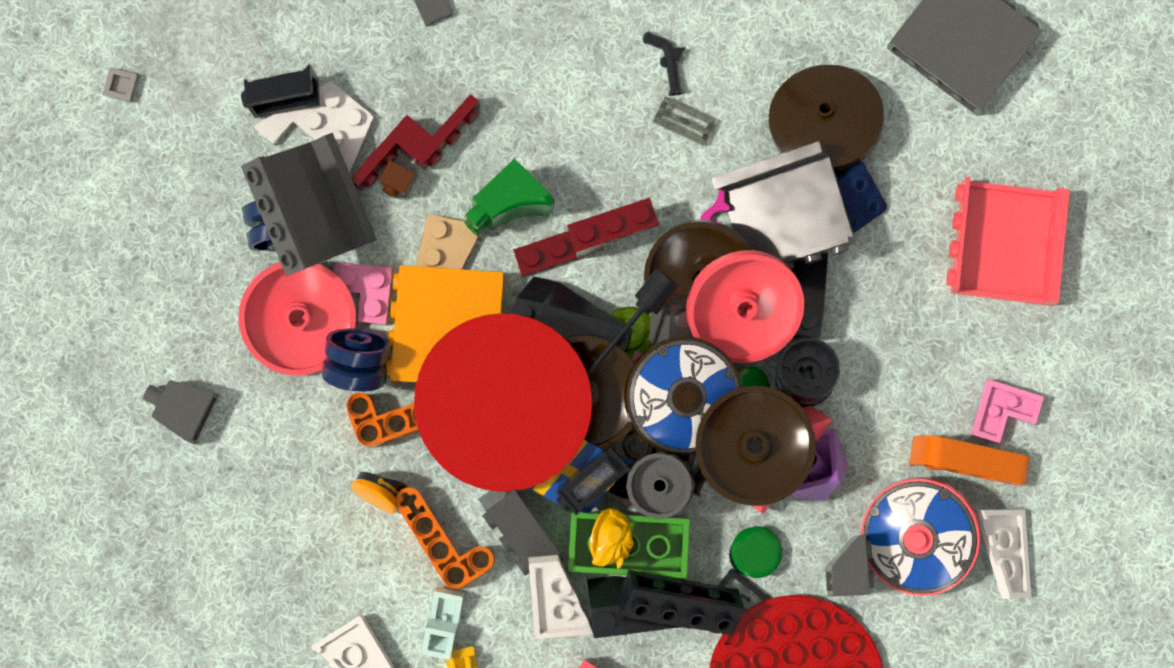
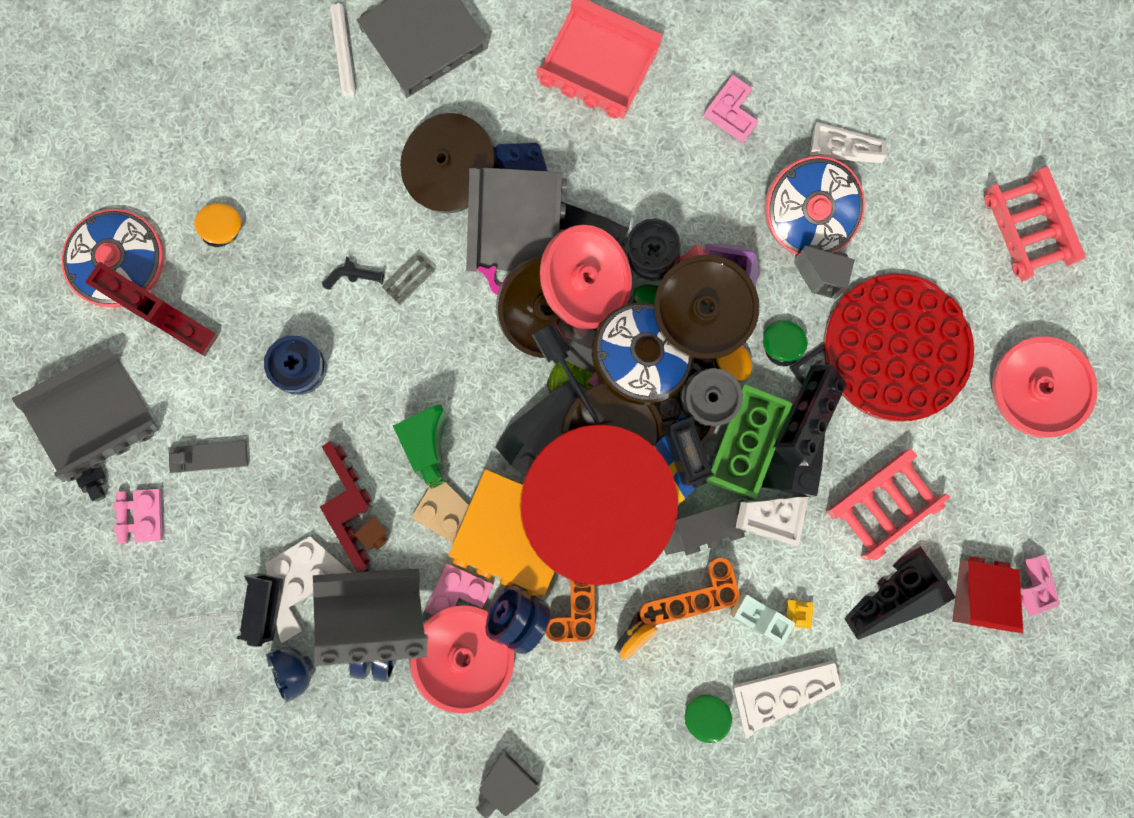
camera: 75 degrees left, 0 degrees up
(120, 85) = (200, 750): light grey tile -> none
(227, 146) = (290, 672): none -> dark blue cylinder
(318, 598) = (708, 718): none -> green piece
(542, 21) = (282, 358): none -> dark blue wheel
(586, 237) = (479, 390): dark red bracket -> none
(611, 538) = (741, 453): yellow hat -> none
(708, 505) = (736, 363): none -> light orange piece
(969, 459) = (764, 150): orange beam -> none

